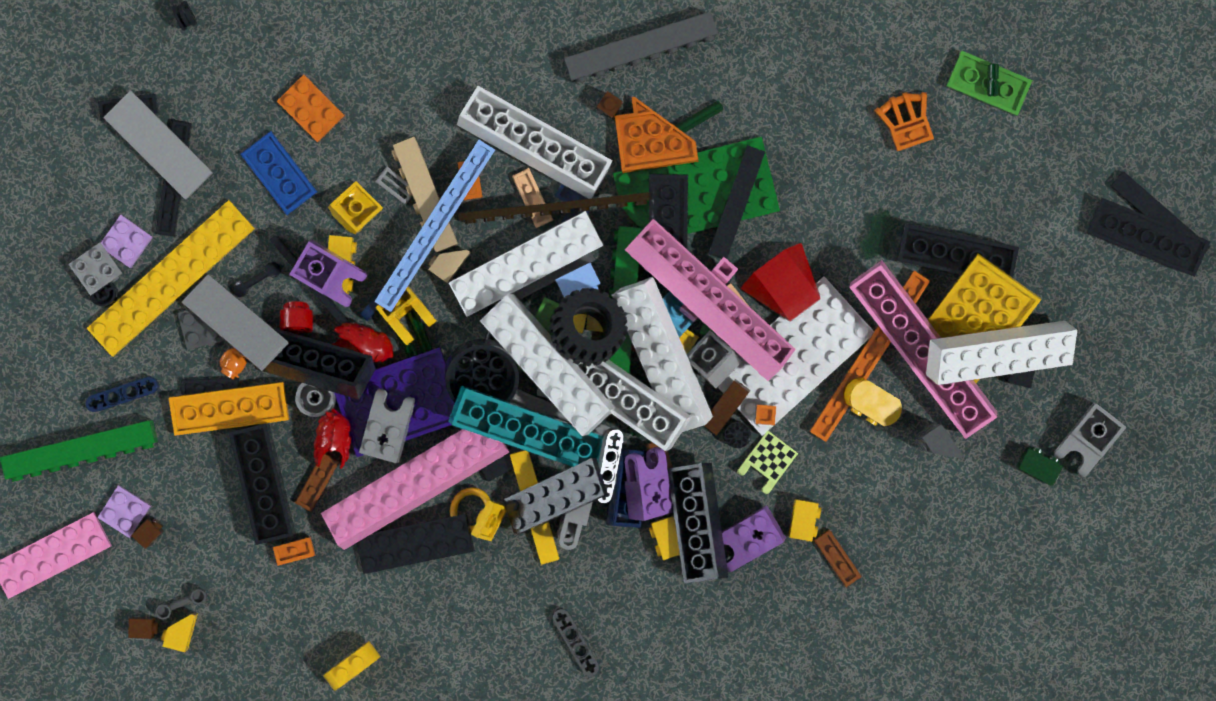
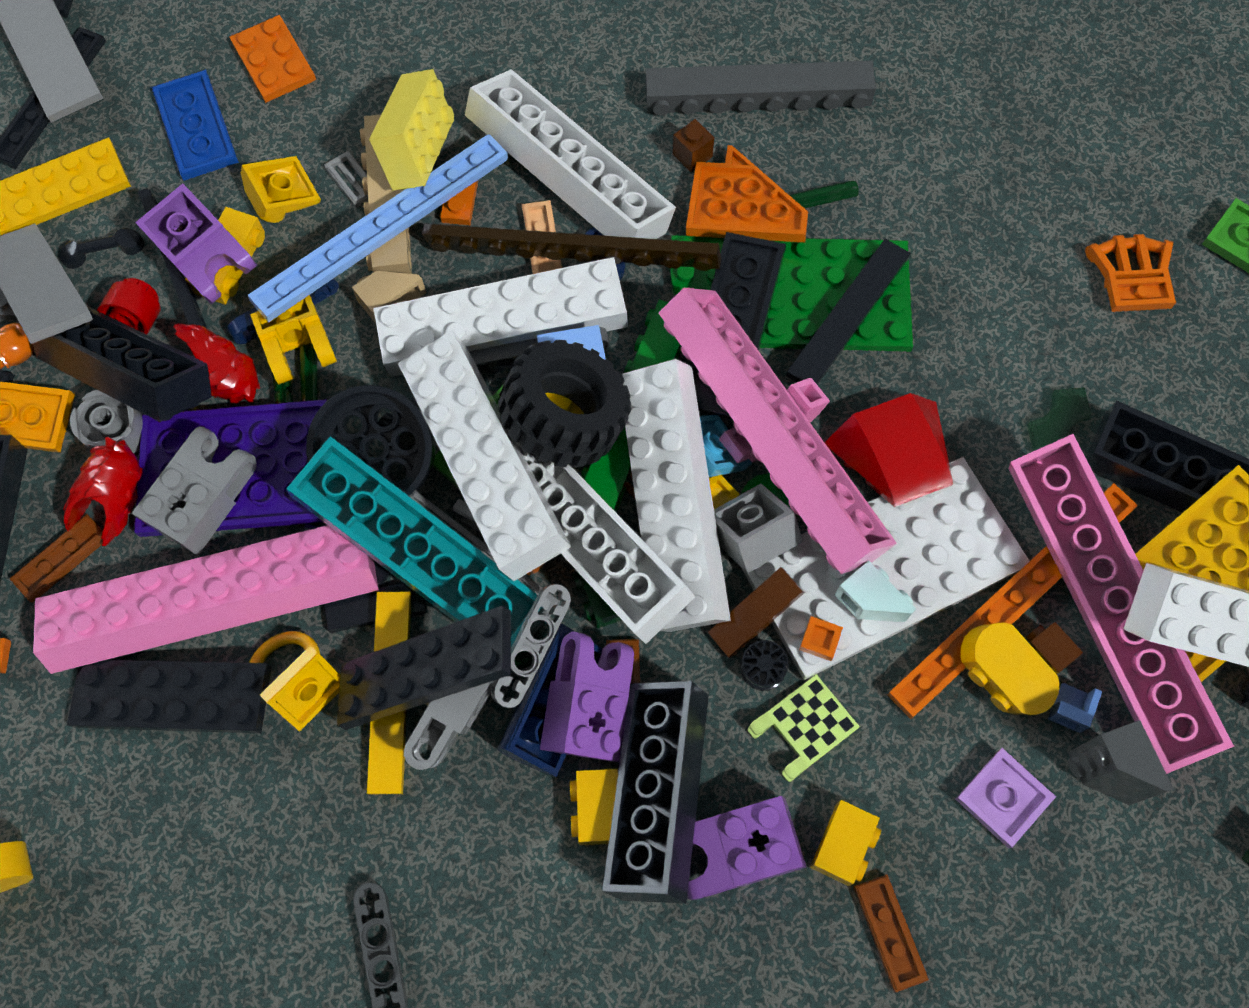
camera: 15 degrees right, 20 degrees down
(432, 154) = (412, 129): none -> light yellow brick
(789, 383) = (873, 597): none -> light aqua slope
(884, 471) = (1005, 798): none -> lavender plate
(894, 382) = (1054, 646): none -> reddish brown brick
(913, 410) = (1075, 707): none -> medium blue panel

